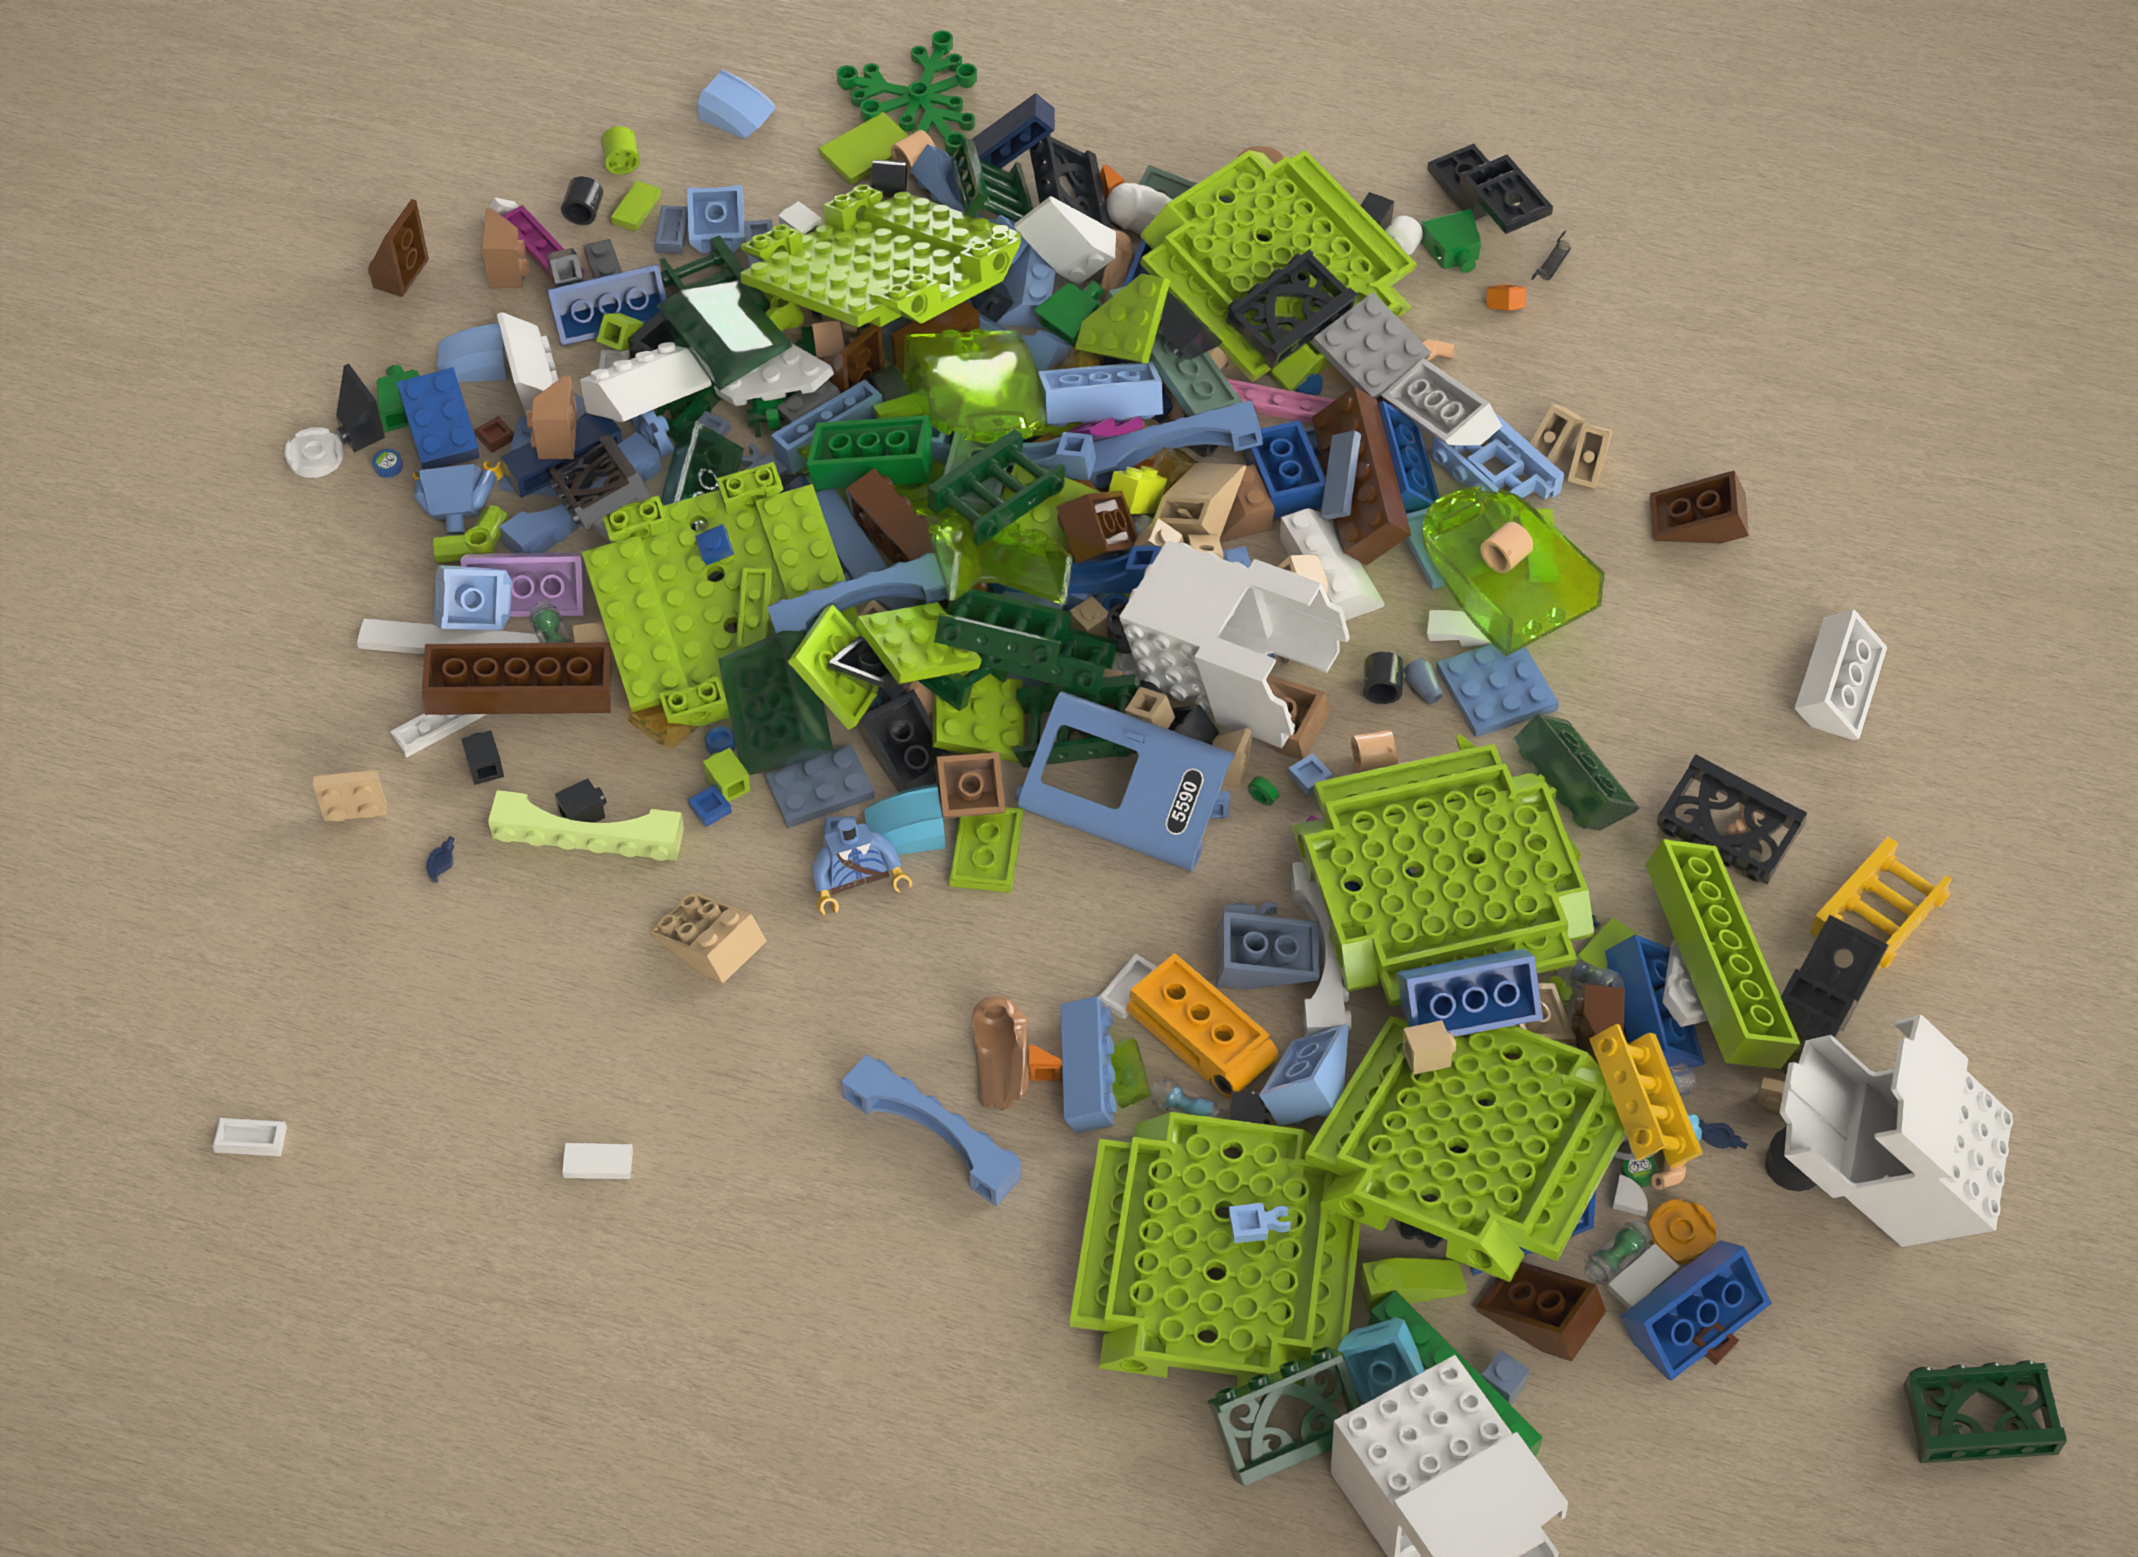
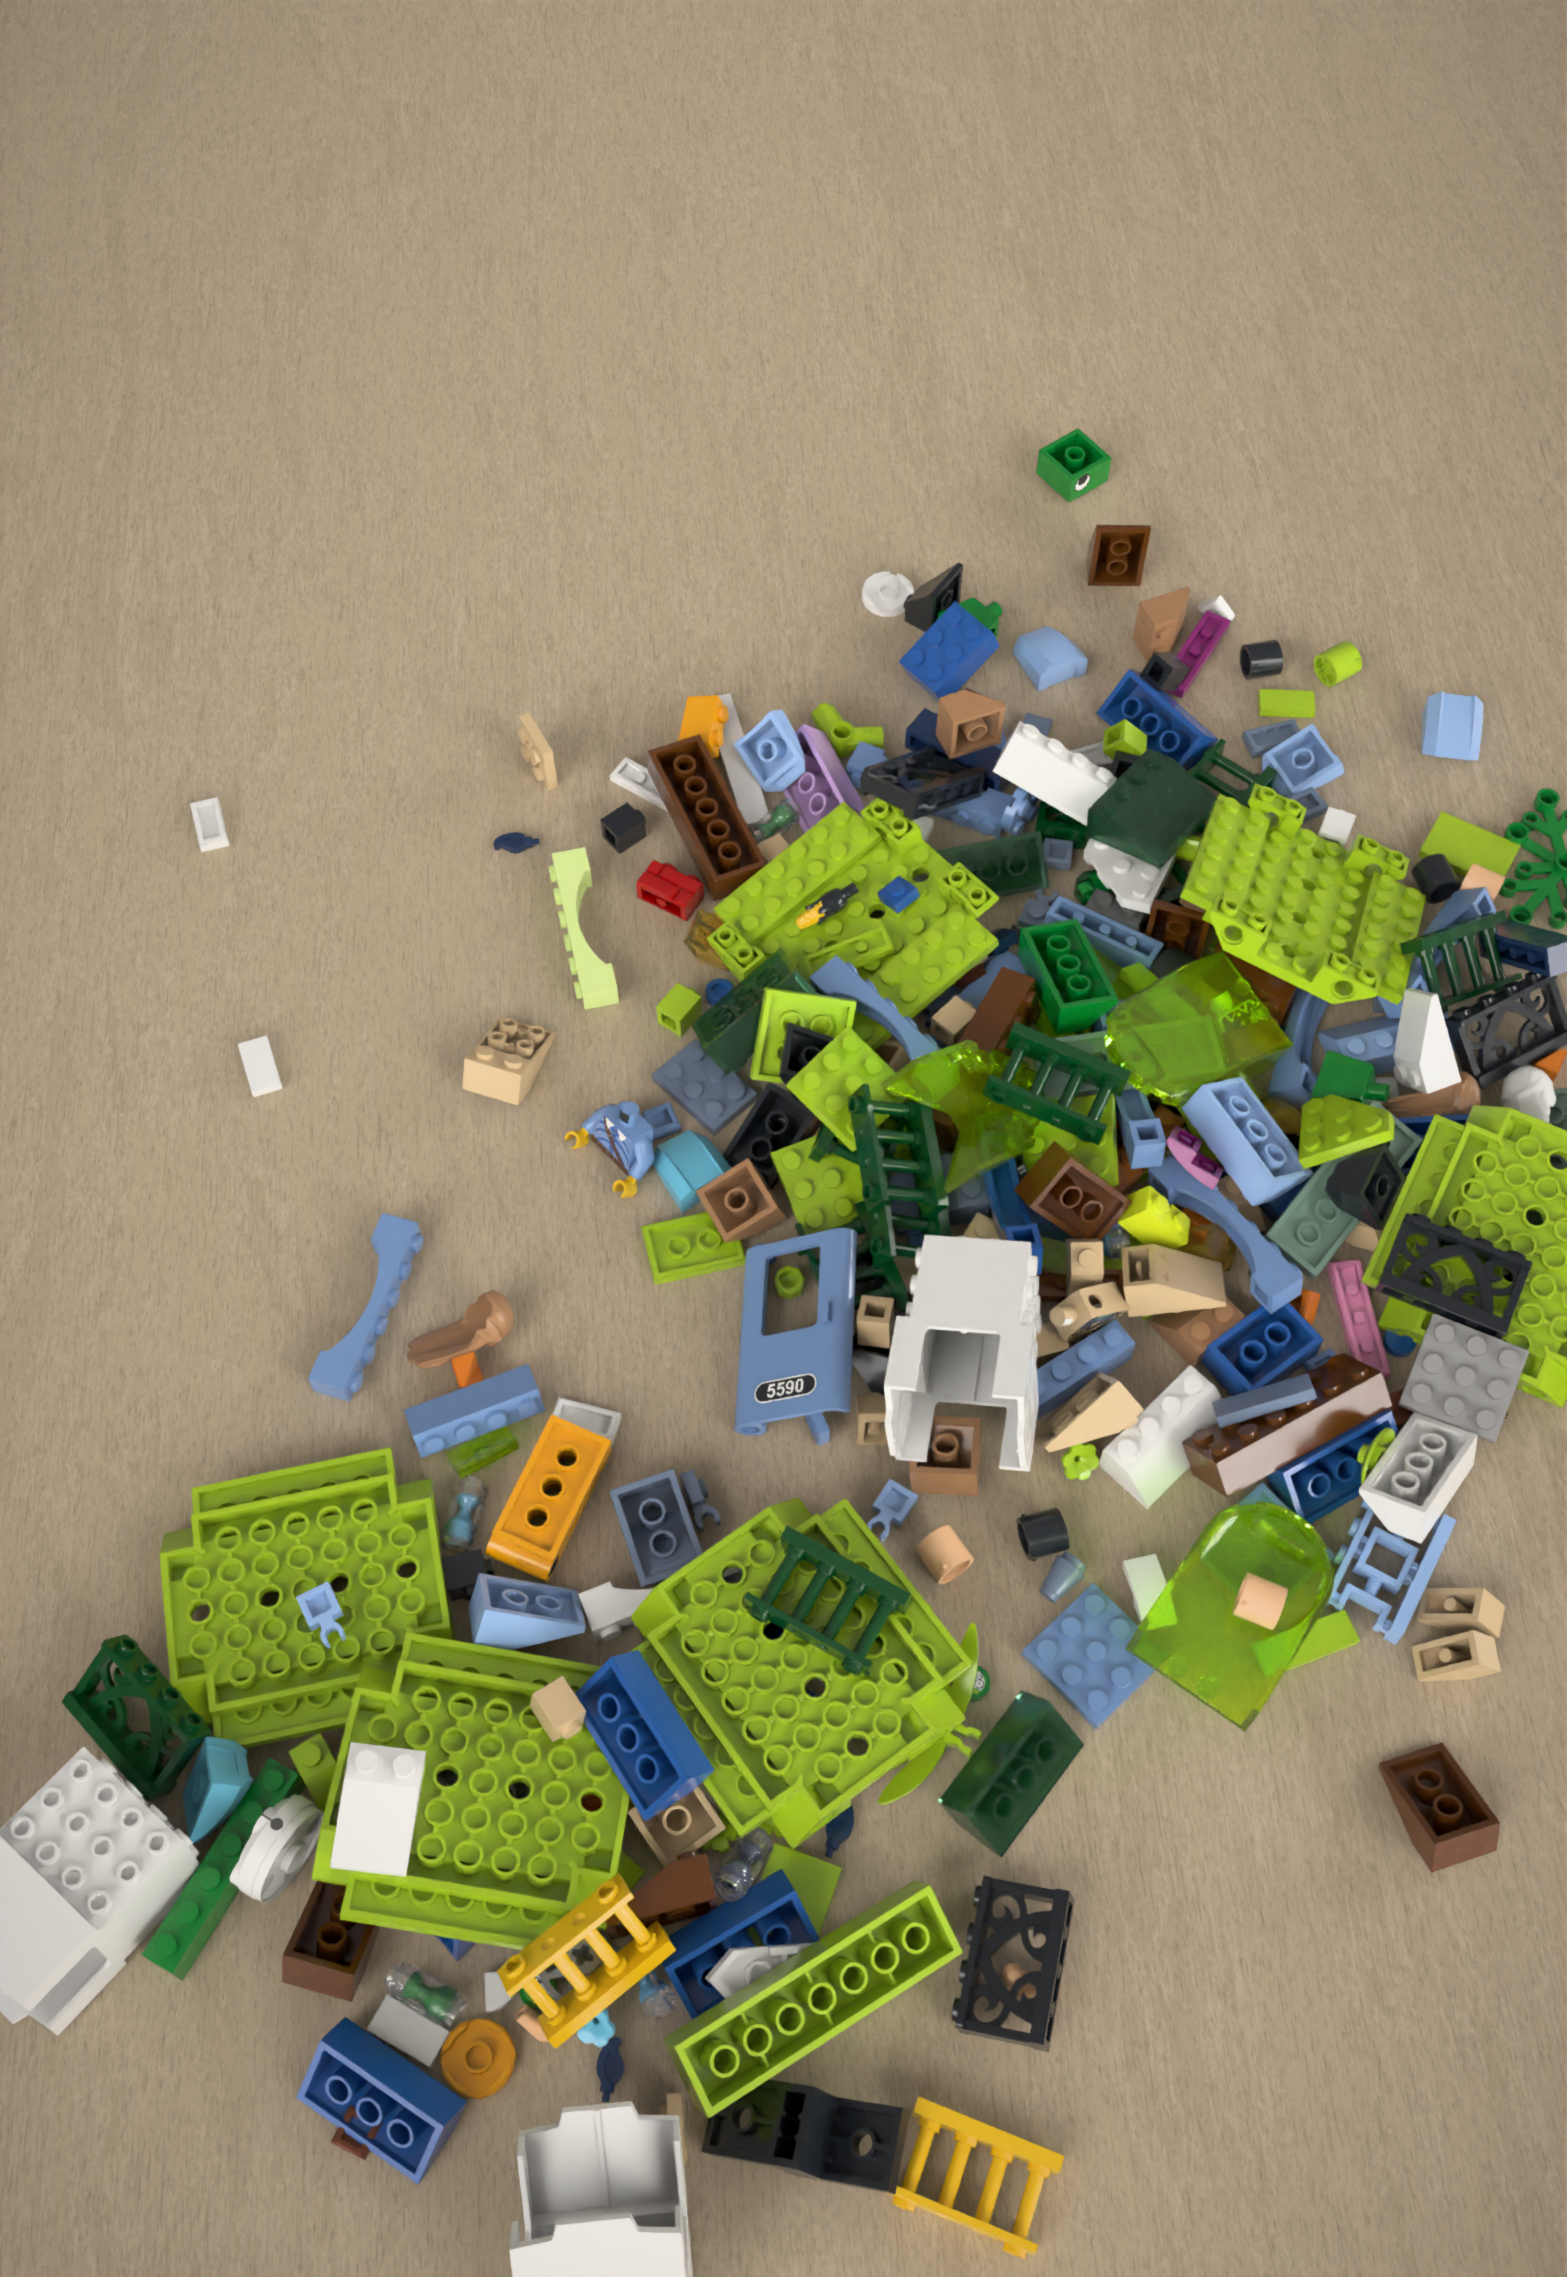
camera: 70 degrees right, 5 degrees up
(257, 246) = (1073, 465): none -> green brick
(387, 463) = (900, 644): tile -> none
(397, 647) = (705, 717): none -> light orange brick
(455, 492) = (882, 697): medium blue torso -> none
(527, 358) = (1042, 687): white slope -> none
(581, 740) = (670, 889): none -> red brick
(581, 802) = (603, 915): black brick -> none
(602, 258) = (1208, 703): dark grey plate -> none
(692, 606) = (826, 906): none -> black piece
(709, 805) = (642, 1009): blue plate -> none
(868, 553) = (952, 1021): none -> tan brick
(993, 302) = (1333, 1018): black brick -> none
(1063, 779) = (789, 1282): none -> lime tile
(1263, 791) = (853, 1464): green tile -> none
(1405, 785) = (827, 1566): none -> dark green fence
(1416, 428) = (1371, 1454): none -> lime dish
(1439, 349) = (1517, 1447): light nougat arm -> none
(1461, 1316) = (277, 1848): none -> white piece
(1478, 1190) = (378, 1809): none -> white slope
(1506, 1376) = (239, 1917): sand blue brick -> none
(1841, 675) = (1282, 2041): white slope -> none

